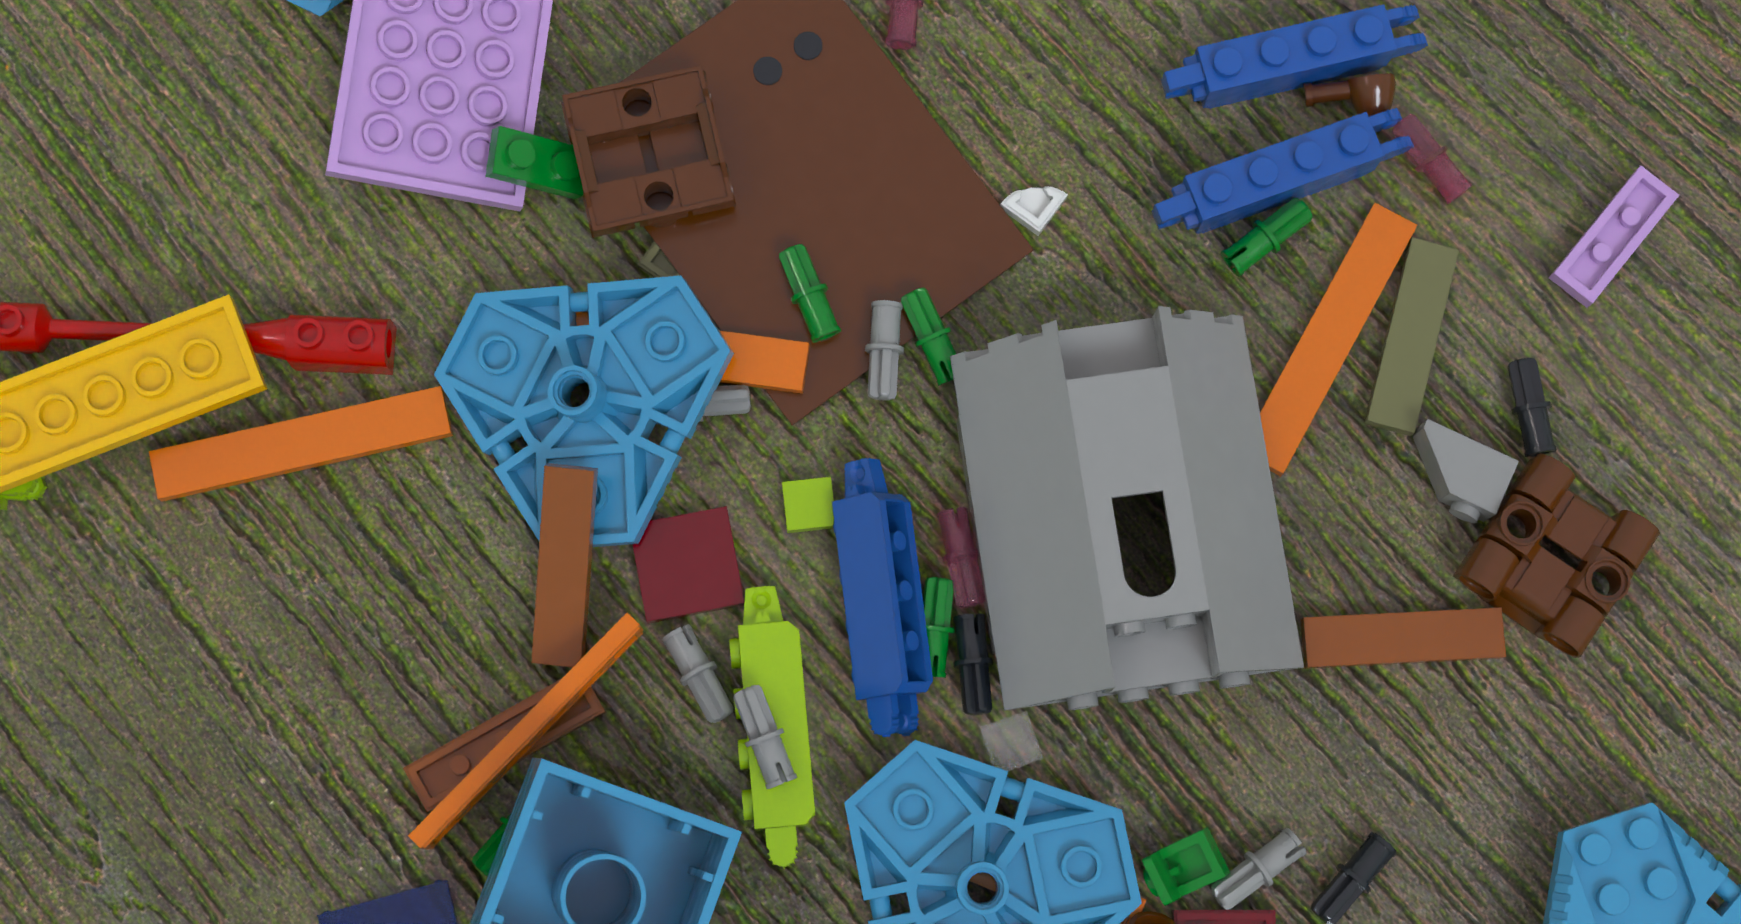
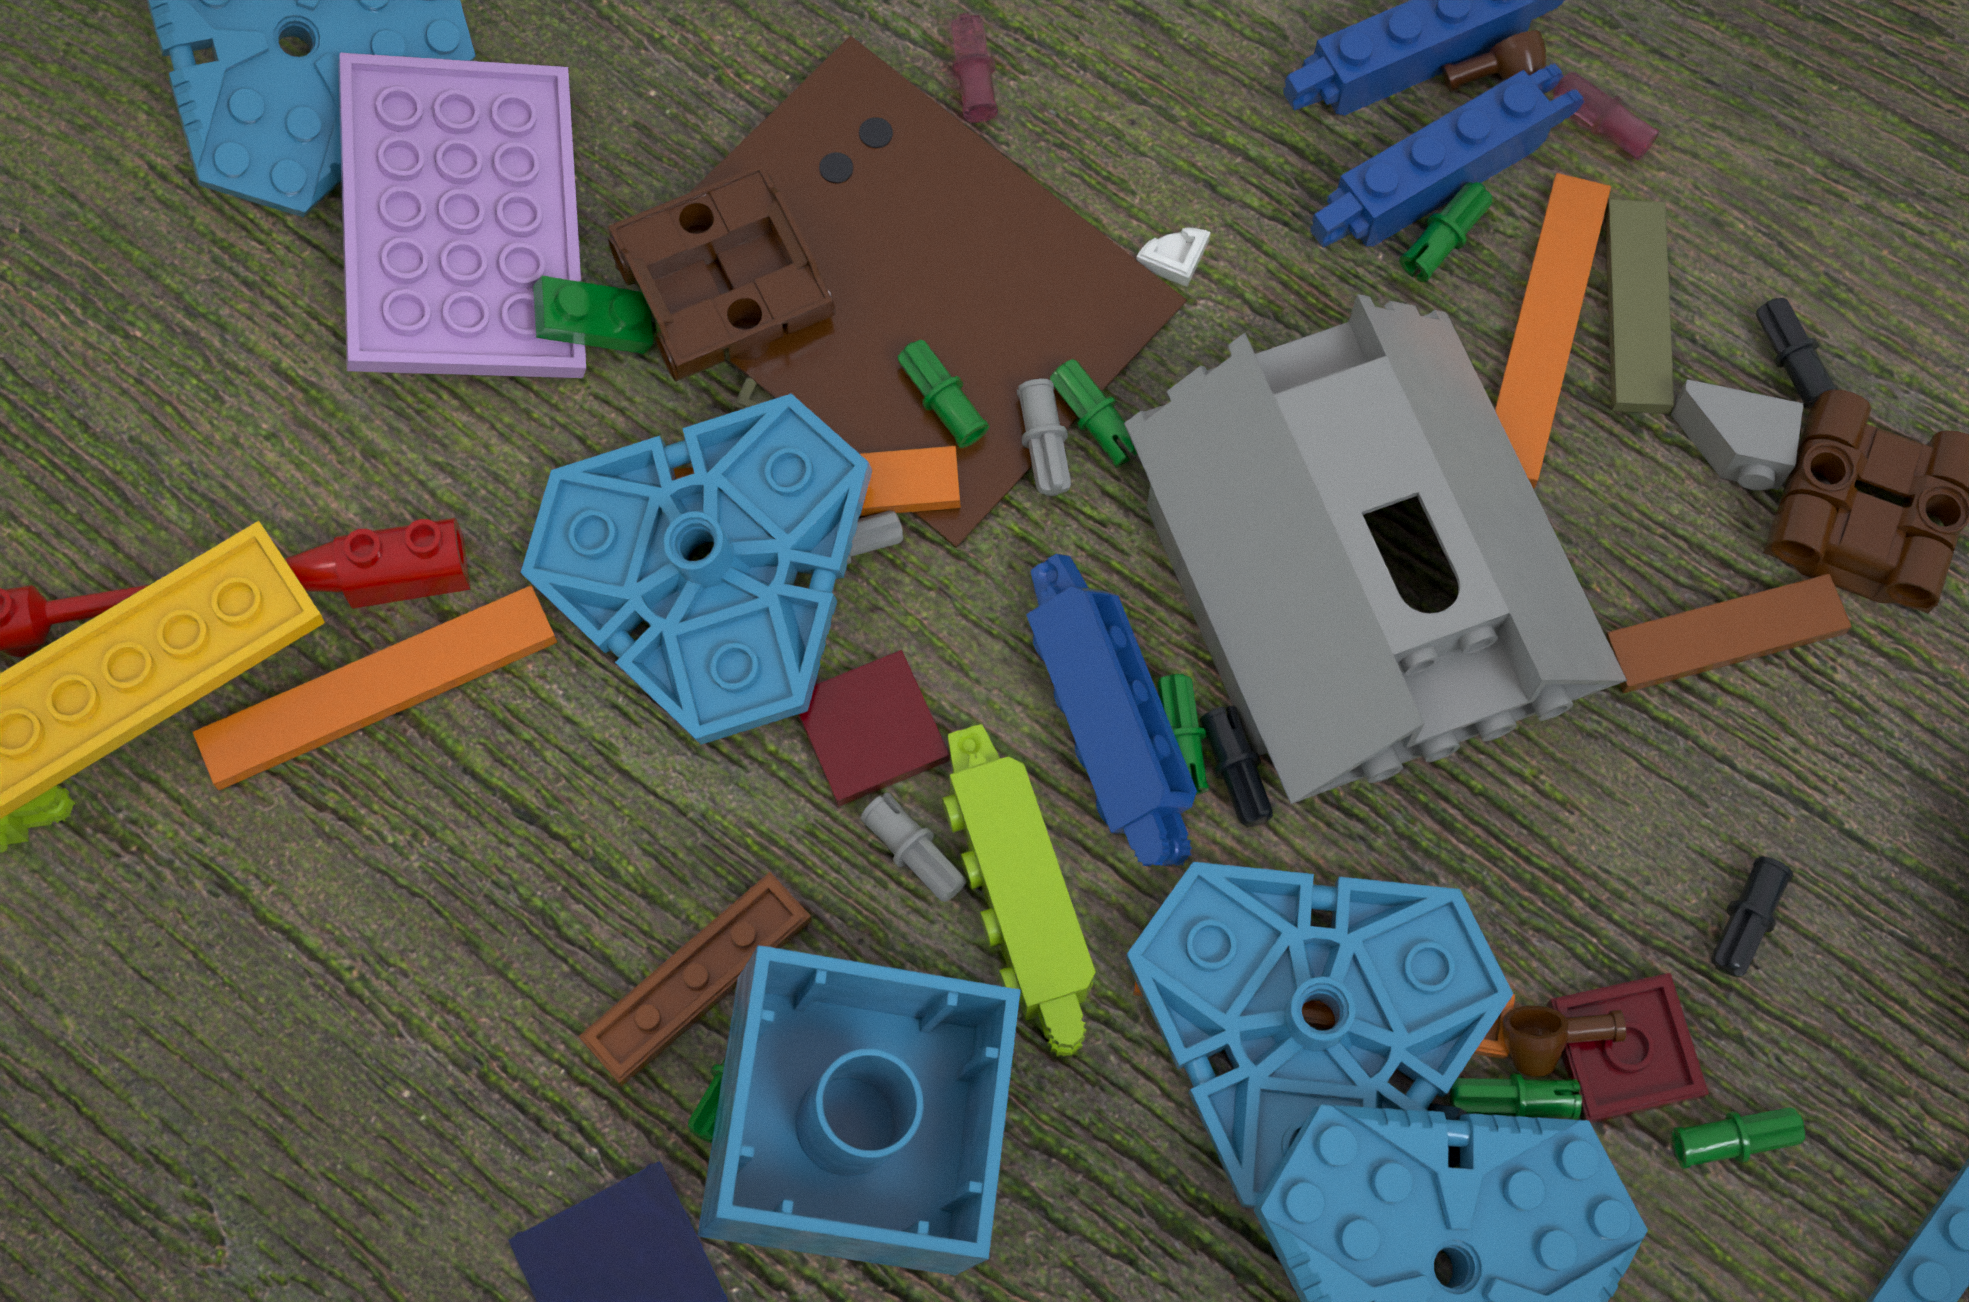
camera: 10 degrees left, 10 degrees down
(526, 733) = (722, 956): orange tile -> none
(564, 564) = (725, 751): dark orange tile -> none
(764, 736) = (1014, 891): light grey axle -> none
(808, 504) = (998, 630): lime tile -> none
(961, 557) = (1192, 649): clear pink axle -> none
(1011, 742) = (1305, 846): clear tile -> none
(1184, 866) = (1550, 943): green bracket -> none
(1258, 869) = (1636, 929): light grey axle -> none
(1613, 236) = (1831, 154): lavender plate -> none

